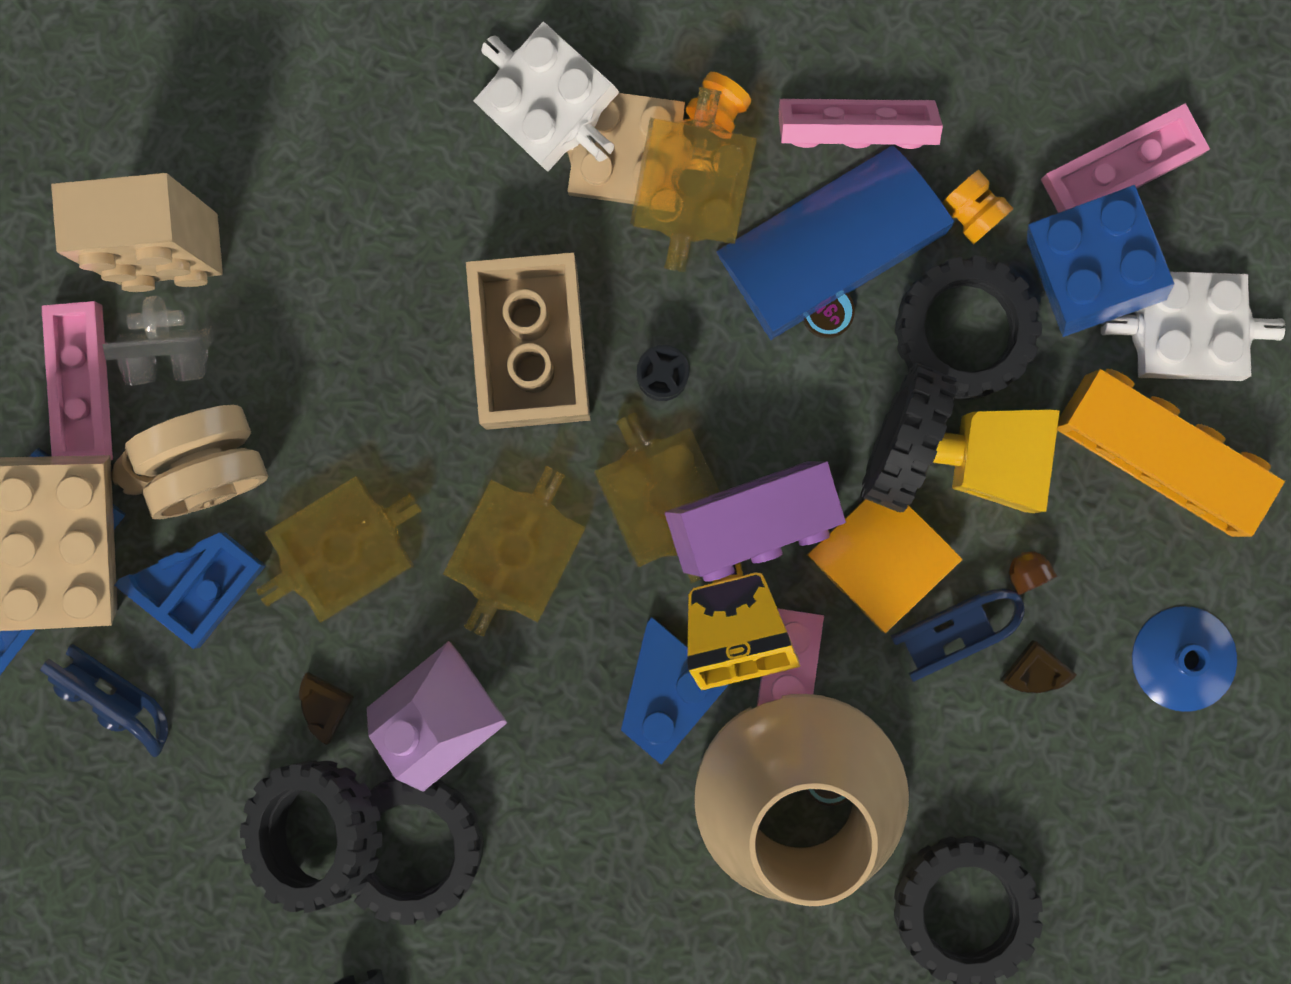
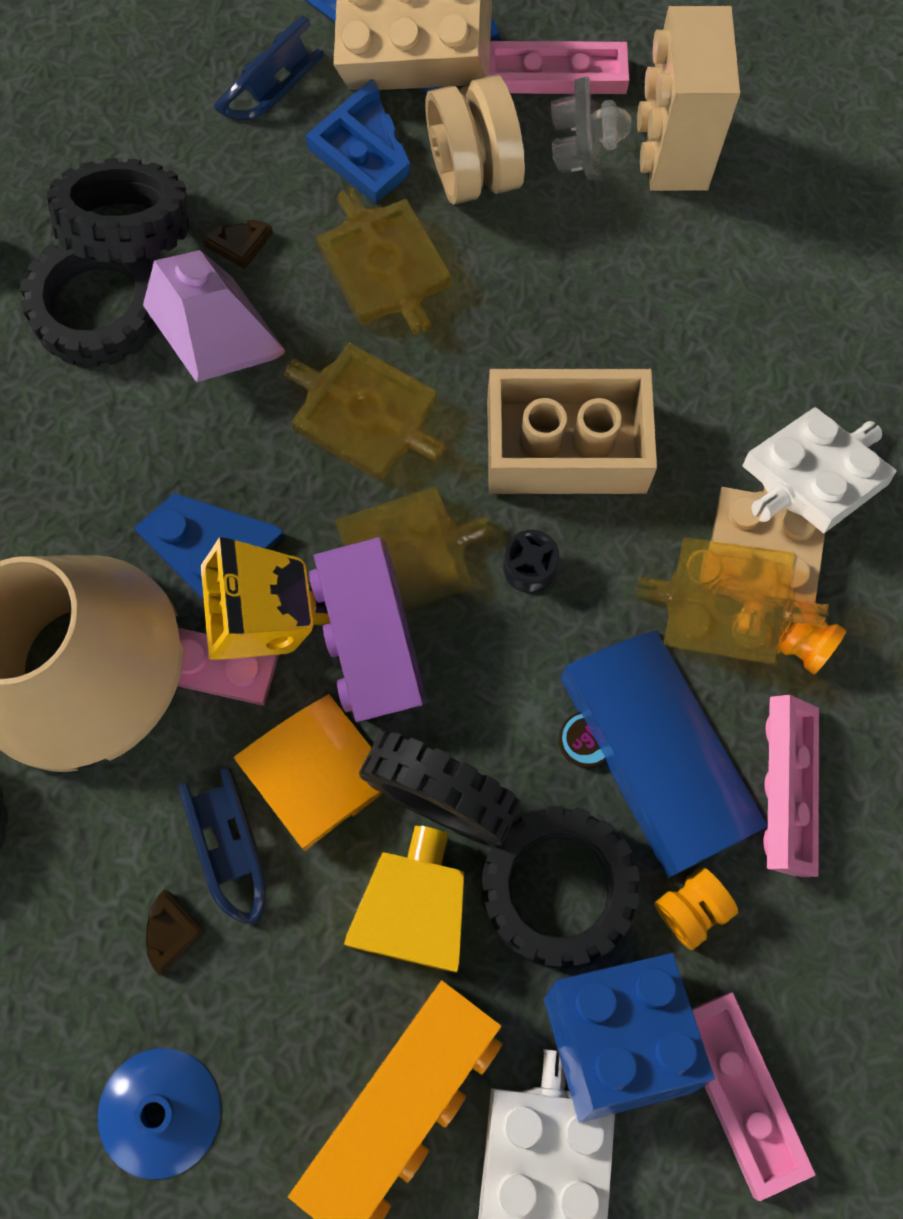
camera: 95 degrees right, 15 degrees down
(1030, 571) = (280, 932): reddish brown hinge -> none

